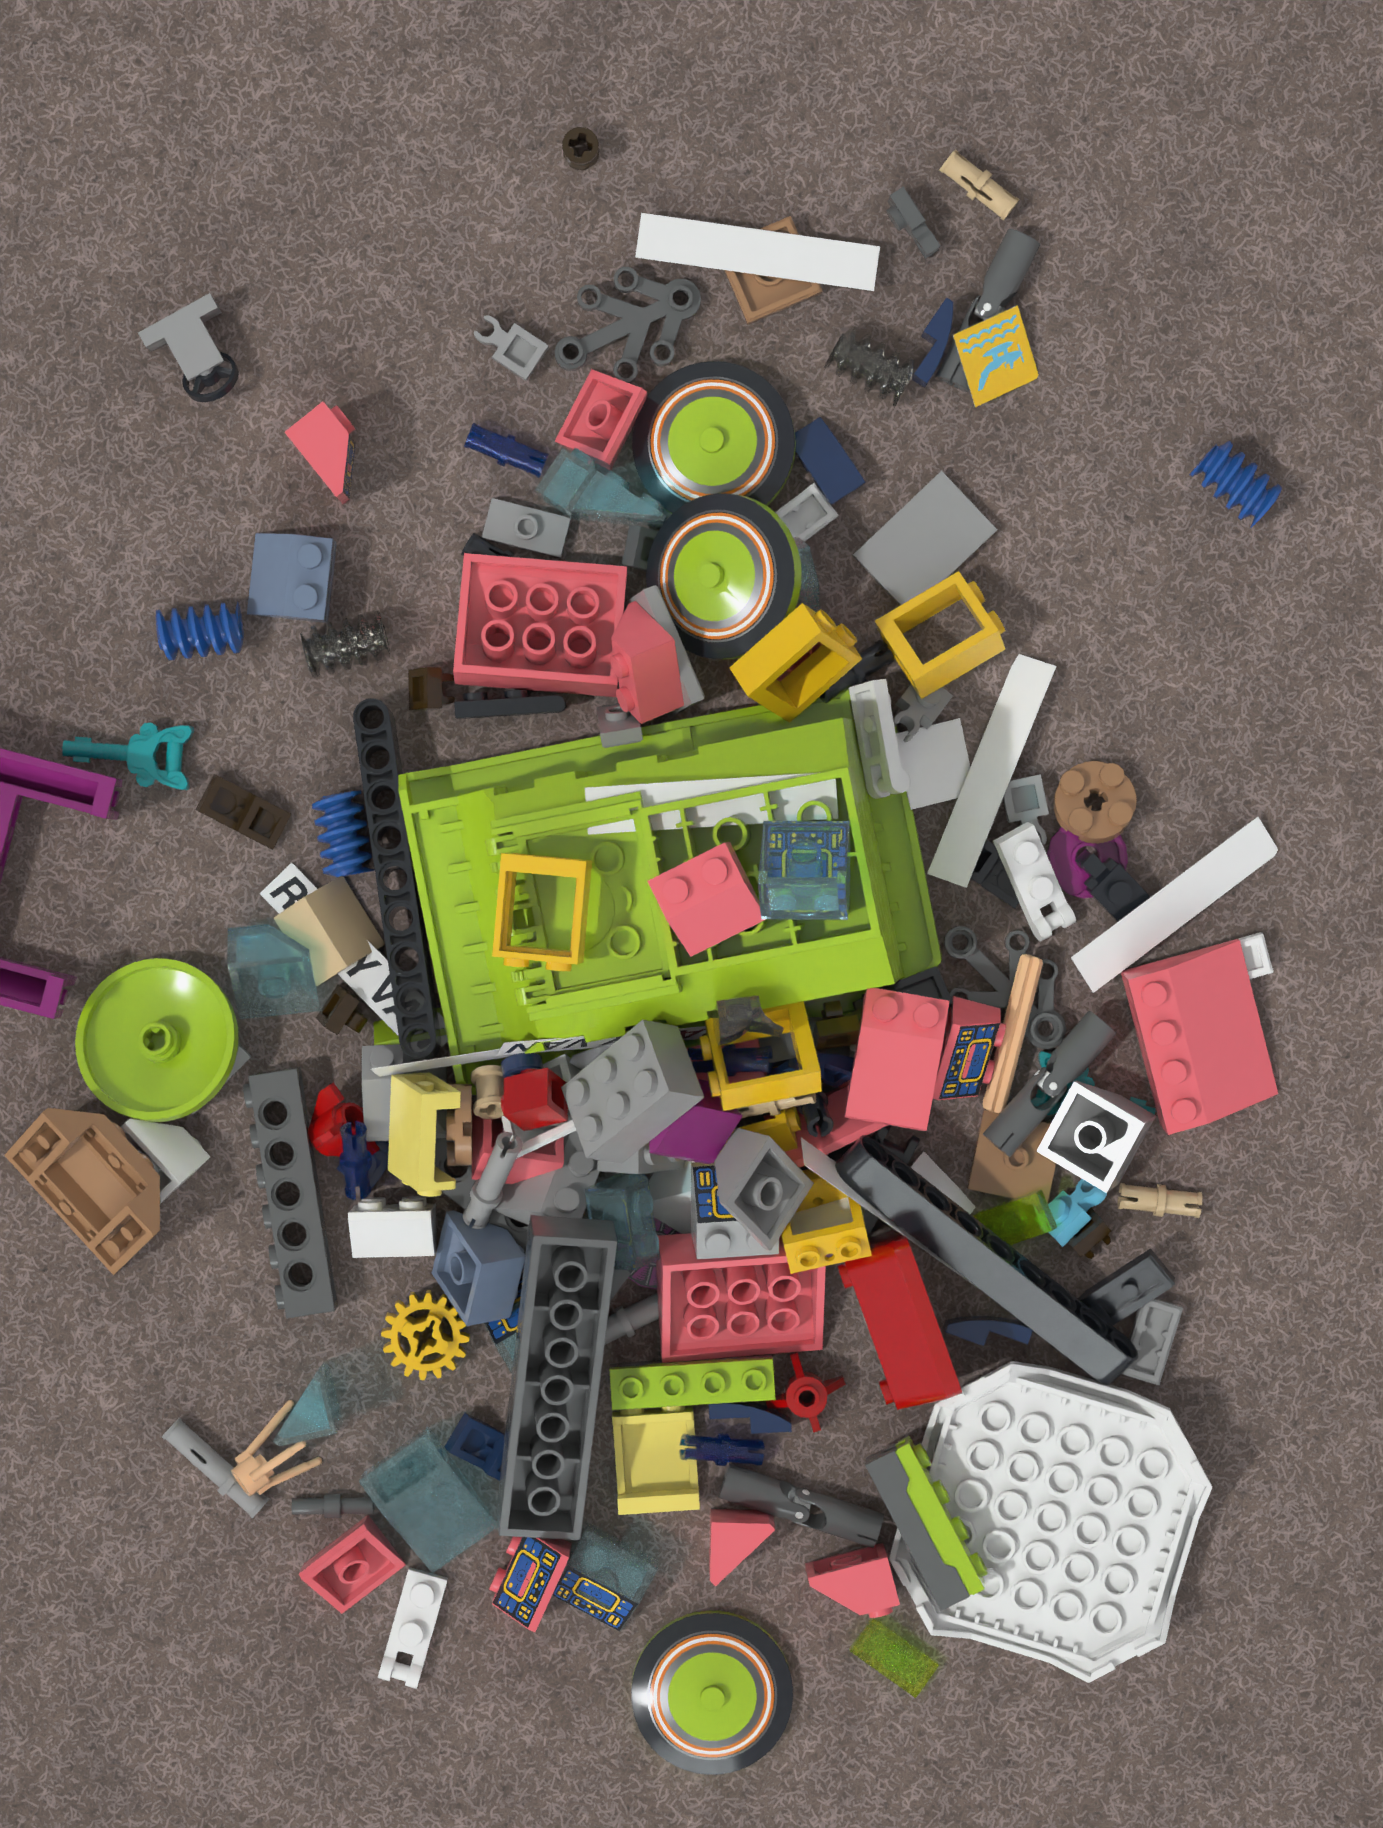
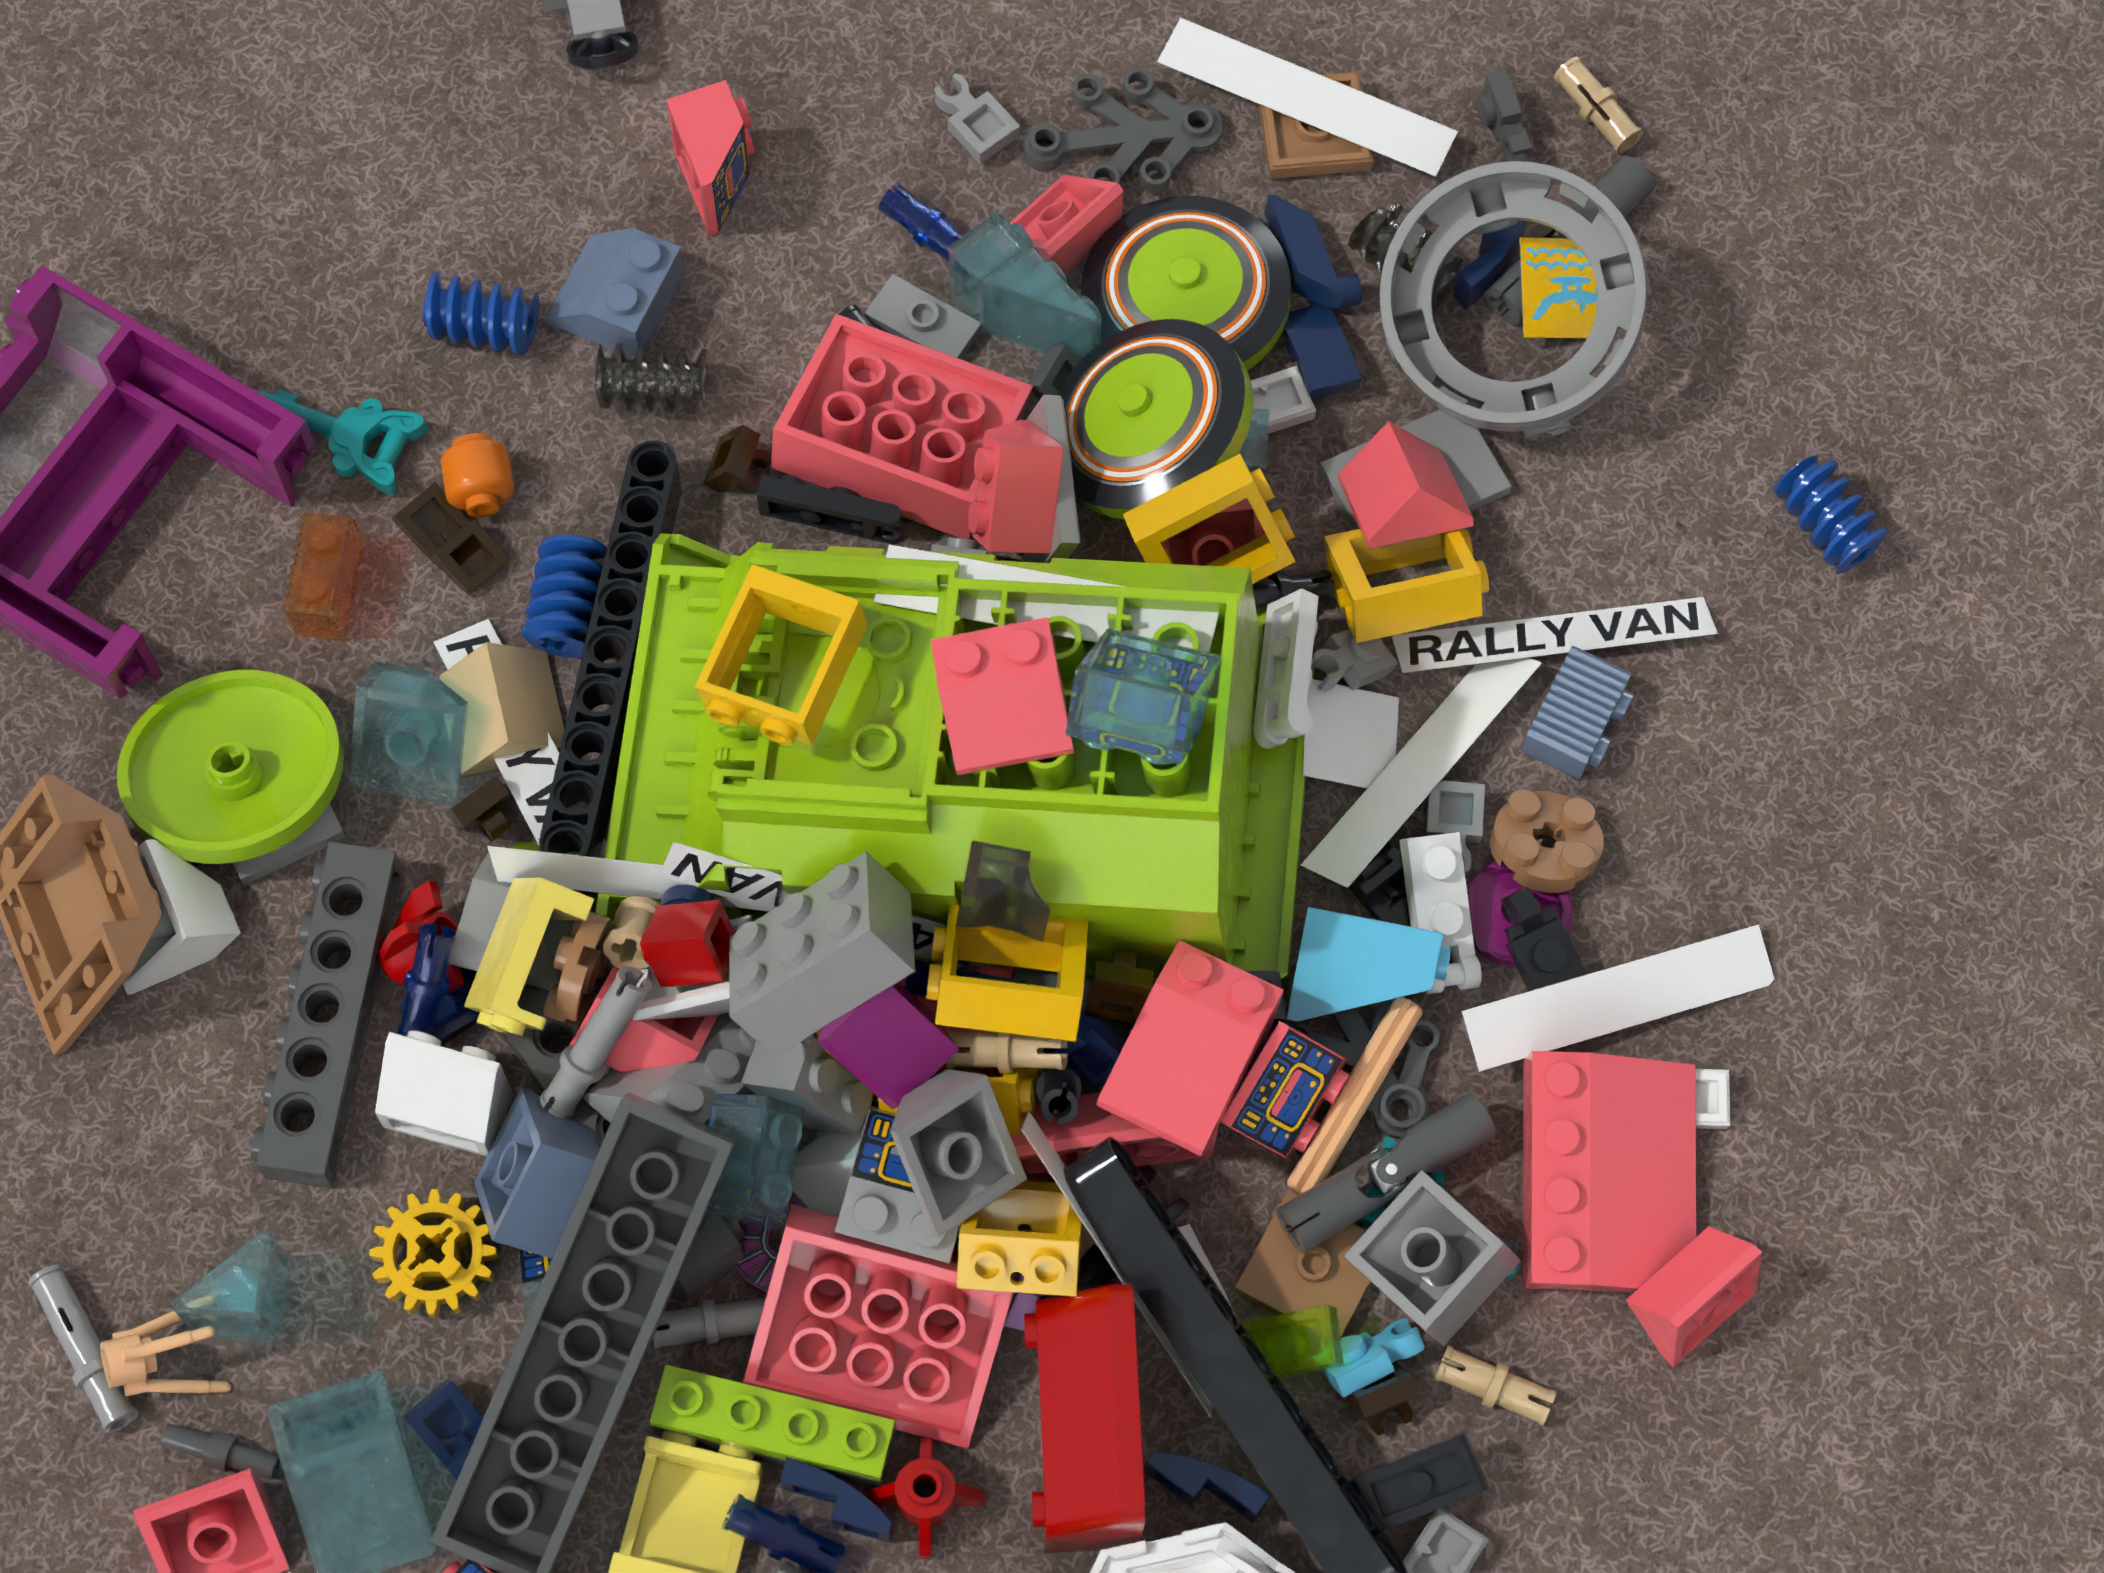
camera: 15 degrees right, 20 degrees down
(165, 874) = (323, 576): none -> clear orange brick
(246, 760) = (477, 474): none -> orange head
(795, 387) = (1307, 257): none -> dark blue piece
(922, 569) = (1402, 489): none -> coral slope
(992, 945) = (1361, 962): none -> medium azure slope
(1005, 463) = (1487, 202): none -> light grey piece
(1066, 635) = (1553, 634): none -> white sticker
(1092, 697) = (1576, 713): none -> sand blue brick
(1276, 1099) = (1696, 1292): none -> coral slope

